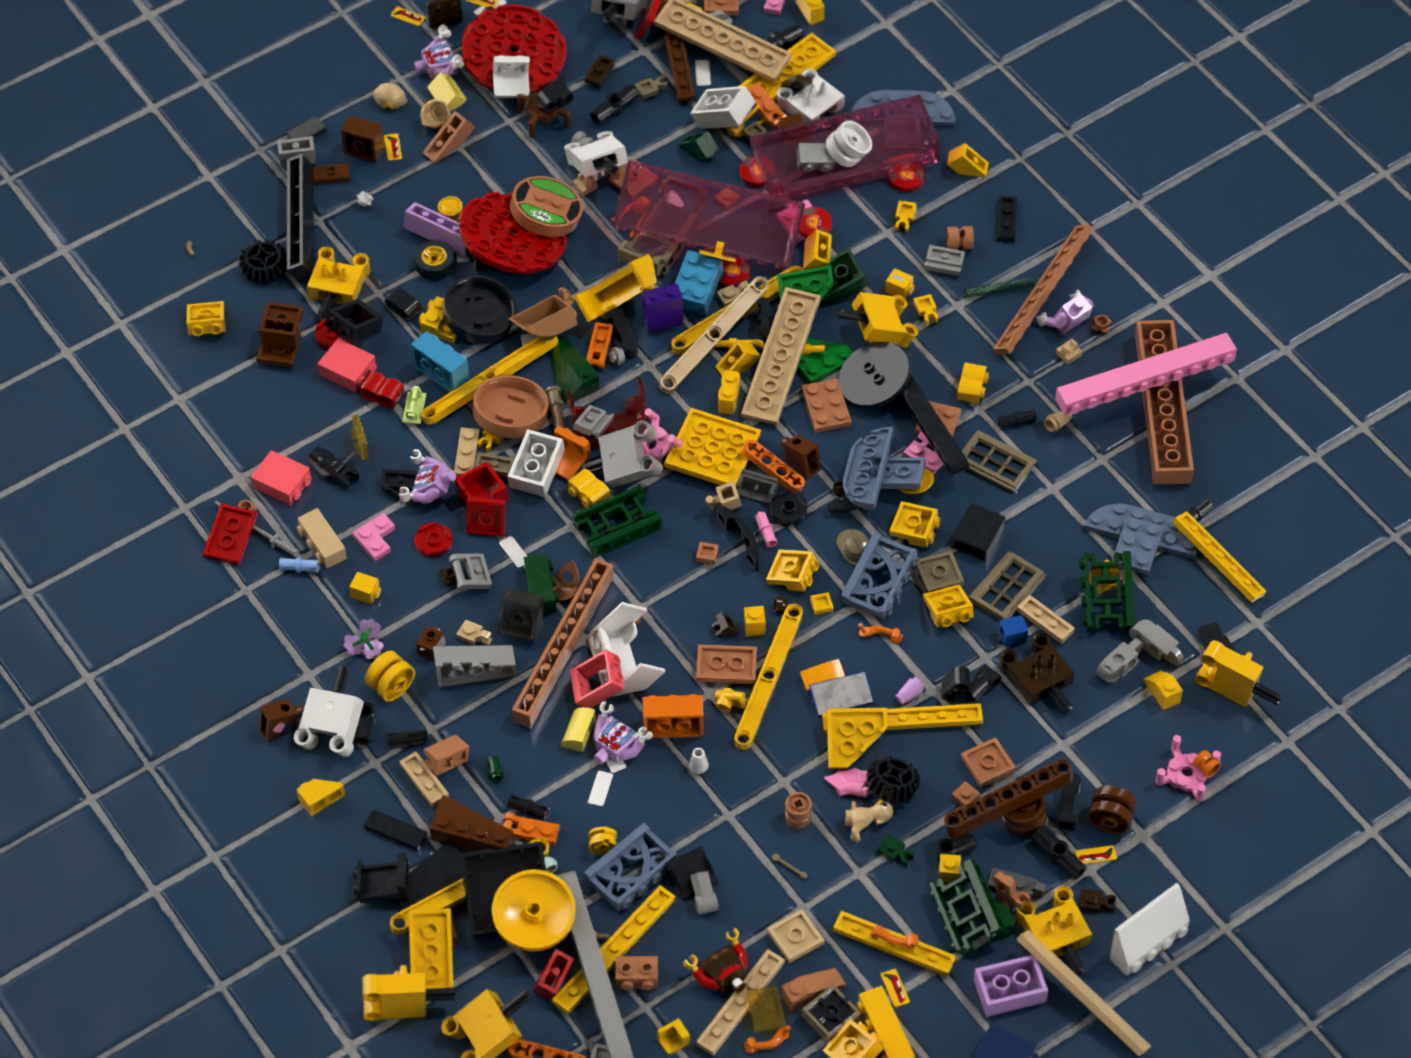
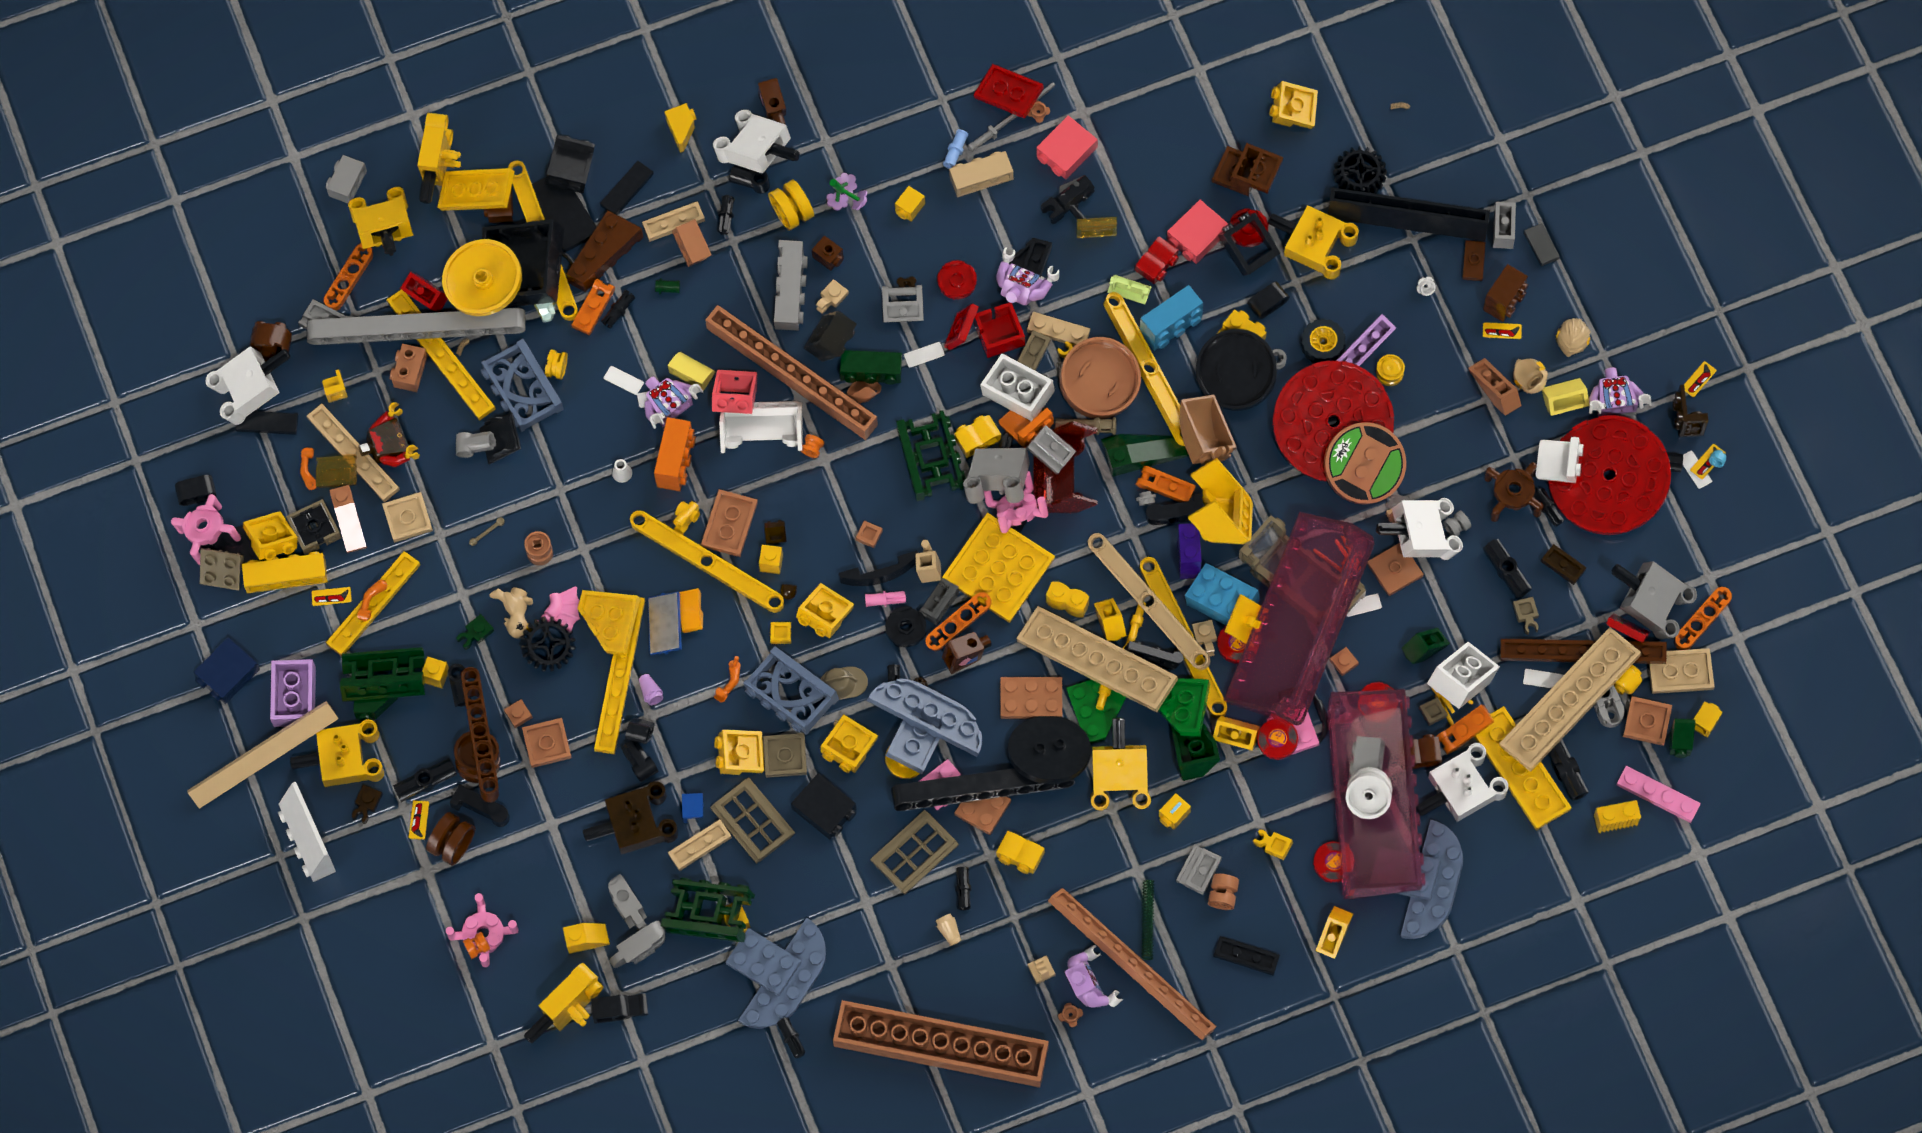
camera: 105 degrees right, 15 degrees up
(371, 536) = (974, 221): bright pink plate -> none
(554, 97) = (1513, 496): black beam -> none
(797, 82) = (1483, 763): dark brown tile -> none
(926, 307) = (1138, 832): yellow plate -> none
(1006, 891) = (389, 716): nougat plate -> none
(1023, 883) = (406, 732): dark grey hinge -> none
(1145, 374) = (965, 1024): bright pink brick -> none
(1219, 557) = (725, 1039): yellow plate -> none

